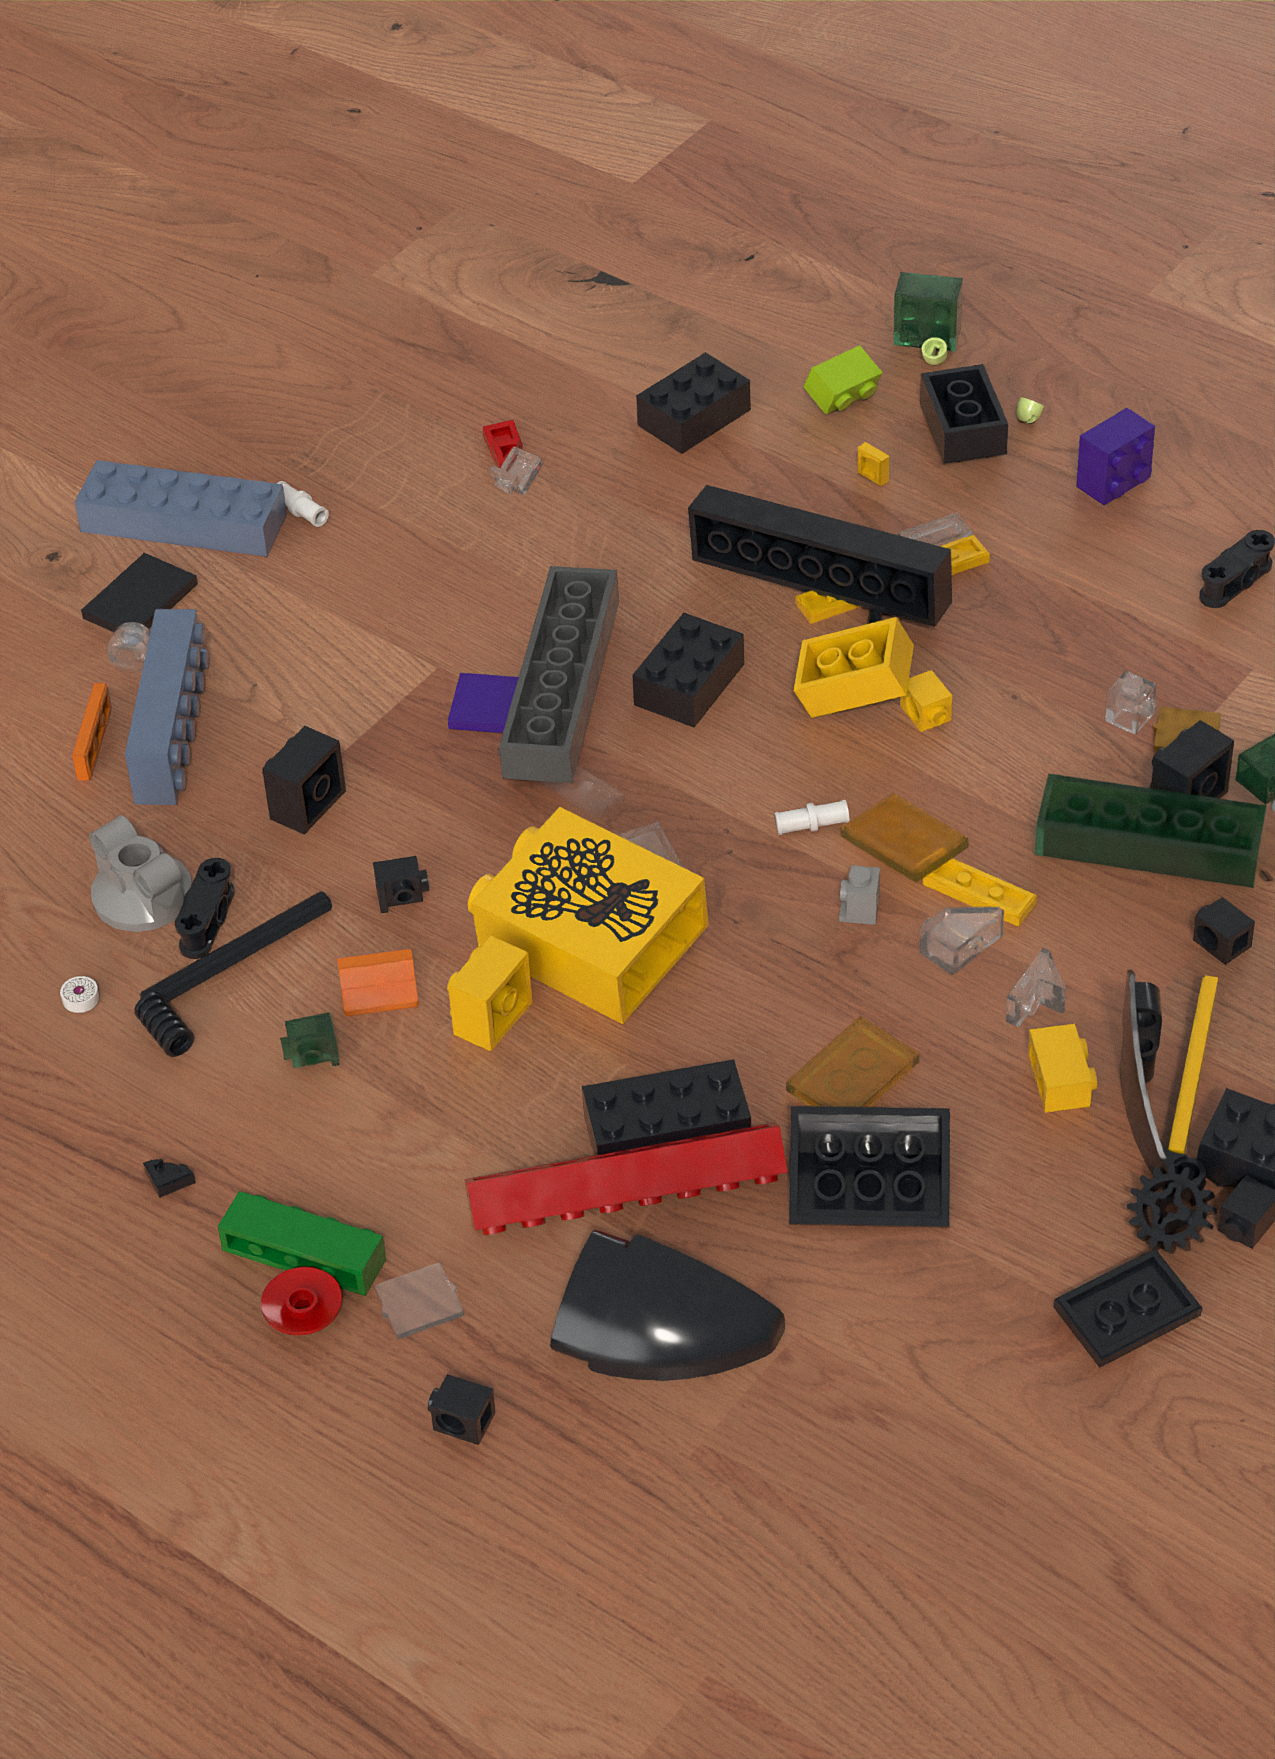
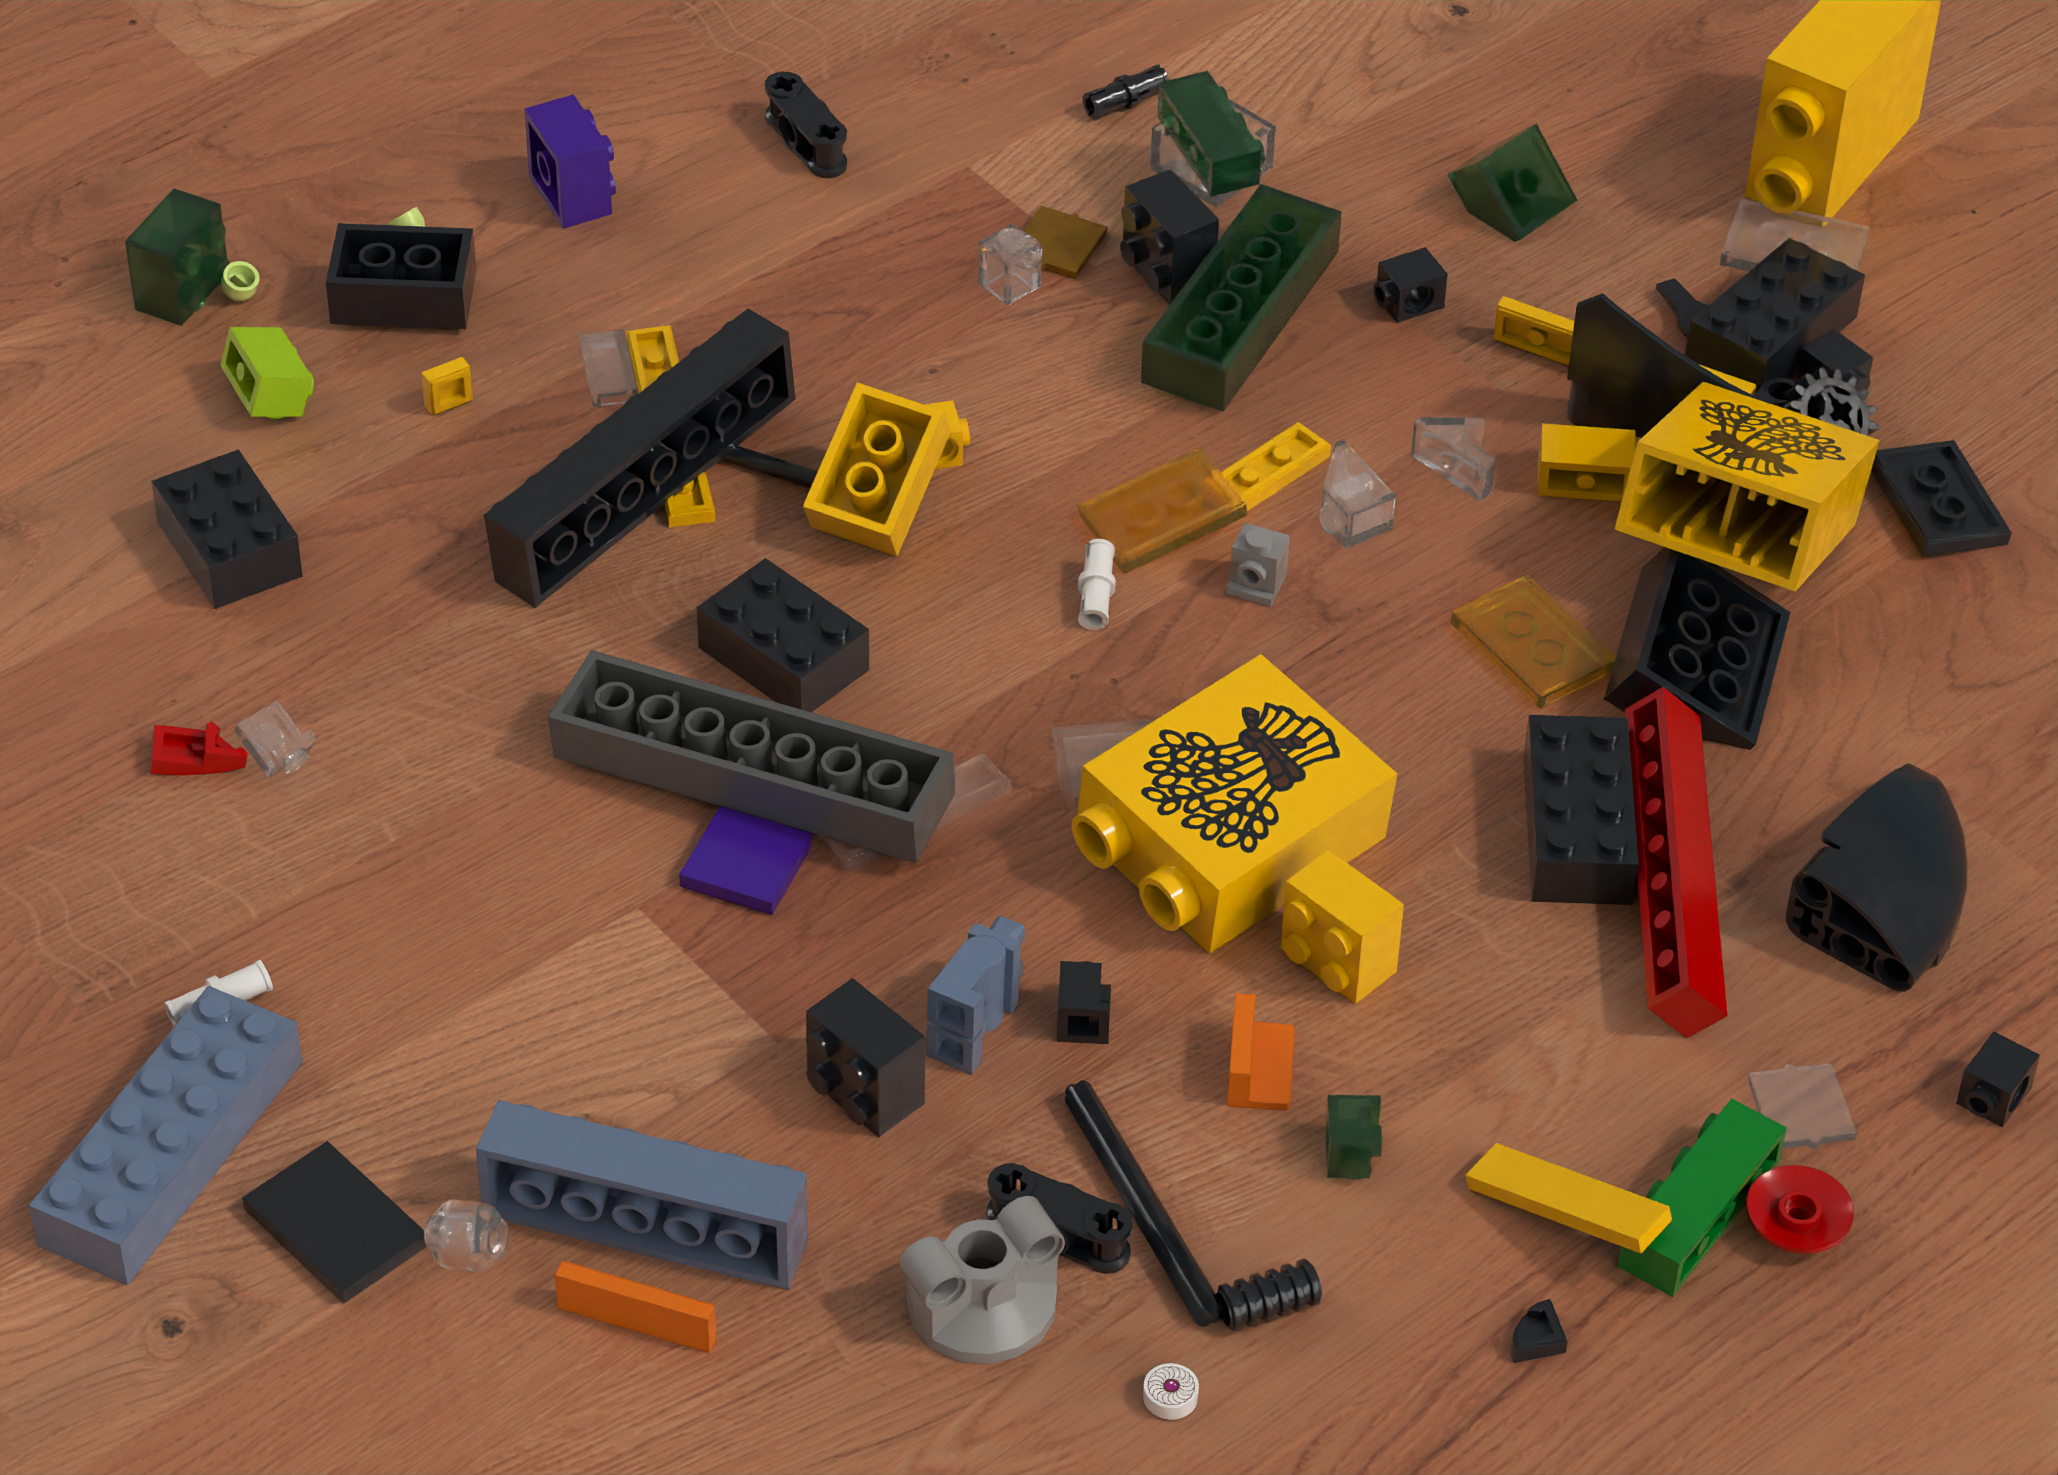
camera: 80 degrees left, 0 degrees up
(270, 1160) = (1569, 1198): none -> yellow tile
(378, 821) = (974, 993): none -> sand blue hips
(1026, 1143) = (1746, 485): none -> yellow brick

